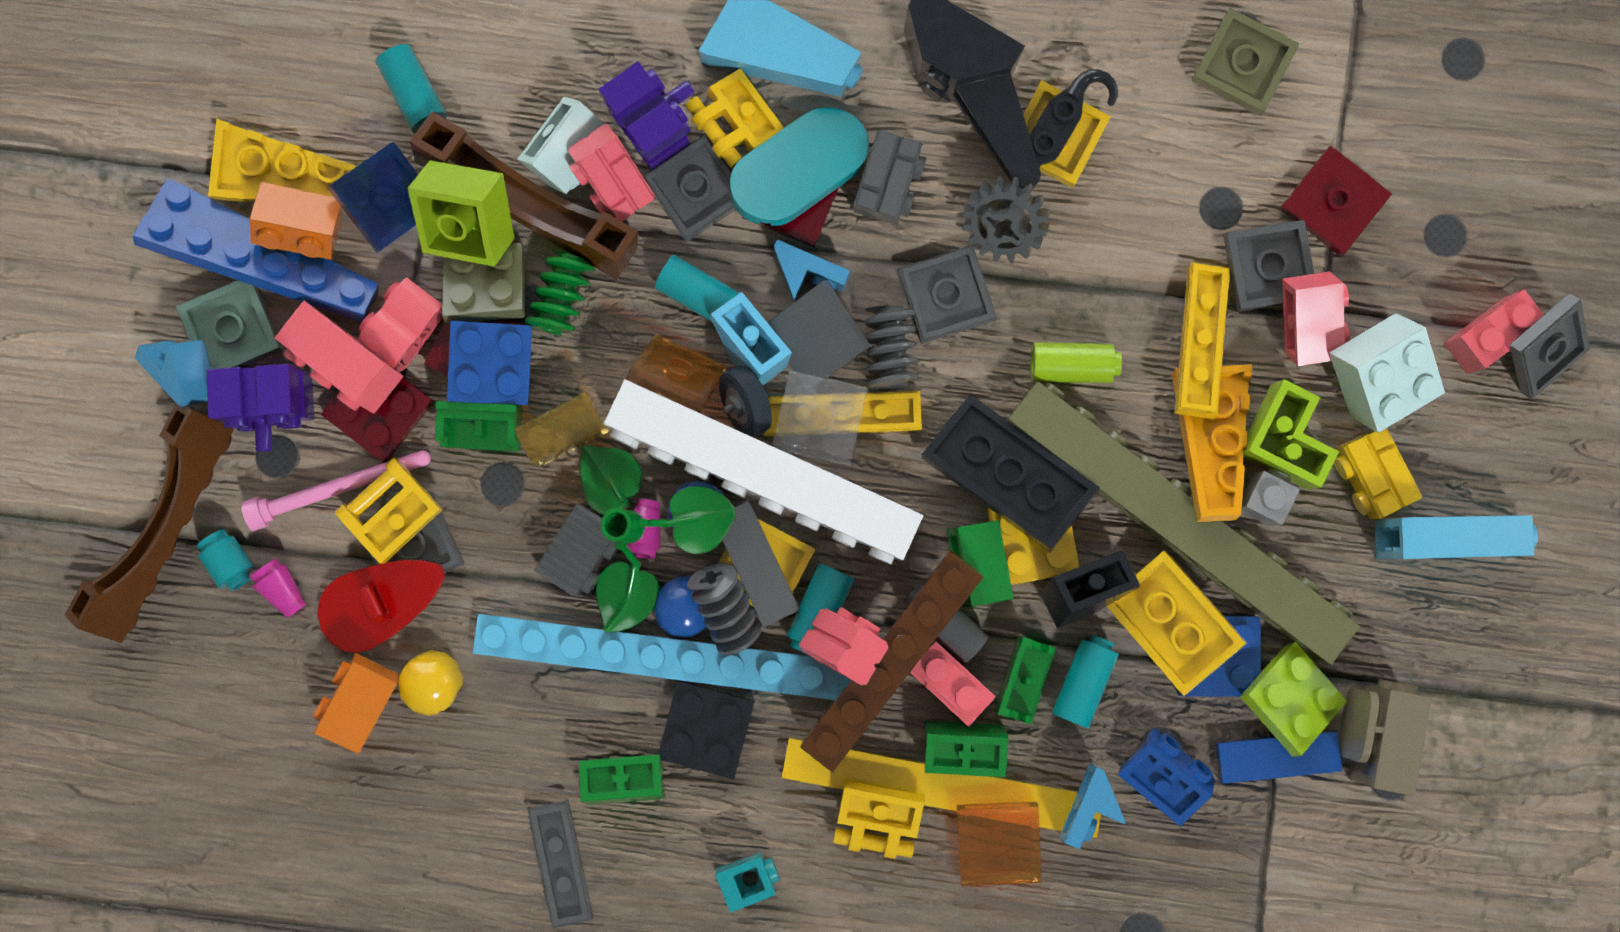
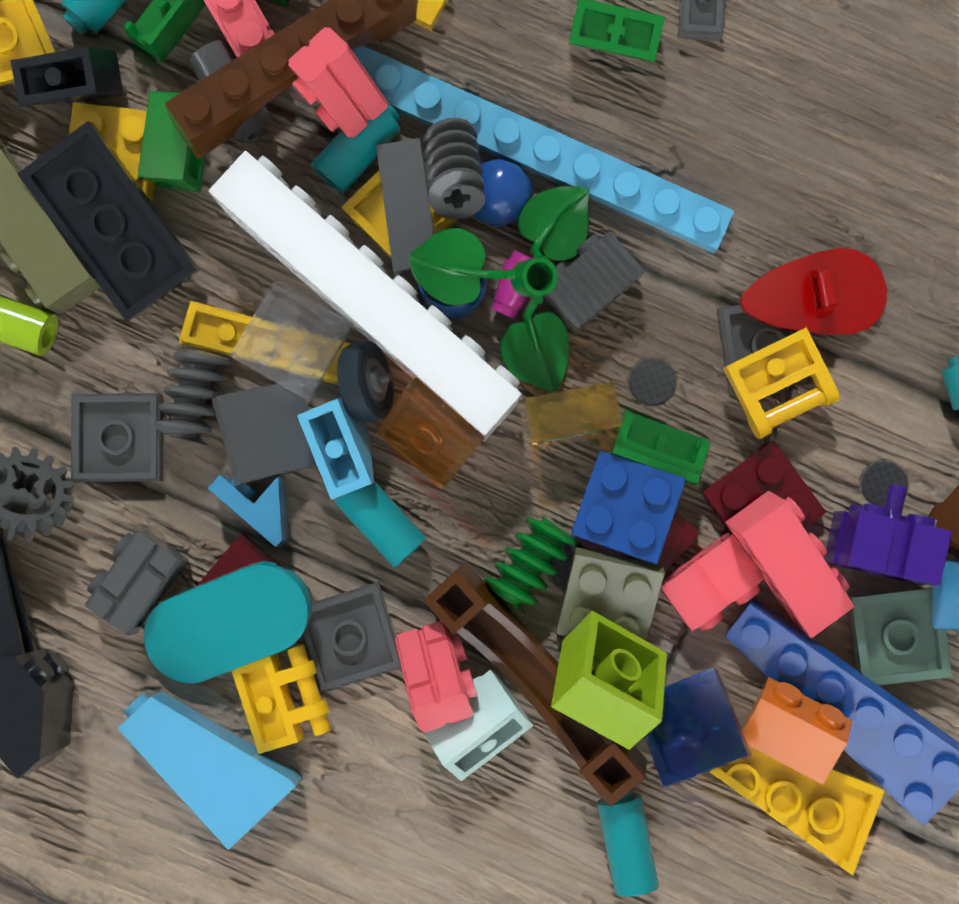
camera: 165 degrees left, 0 degrees up
(260, 512) = (920, 426): bright pink piece -> none
(278, 587) = (920, 341): dark pink cone -> none
(356, 702) = (871, 192): orange brick -> none
(430, 682) = (787, 195): yellow hair -> none
(647, 114) = (375, 730): dark purple brick -> none
(706, 729) = (514, 61): black plate -> none

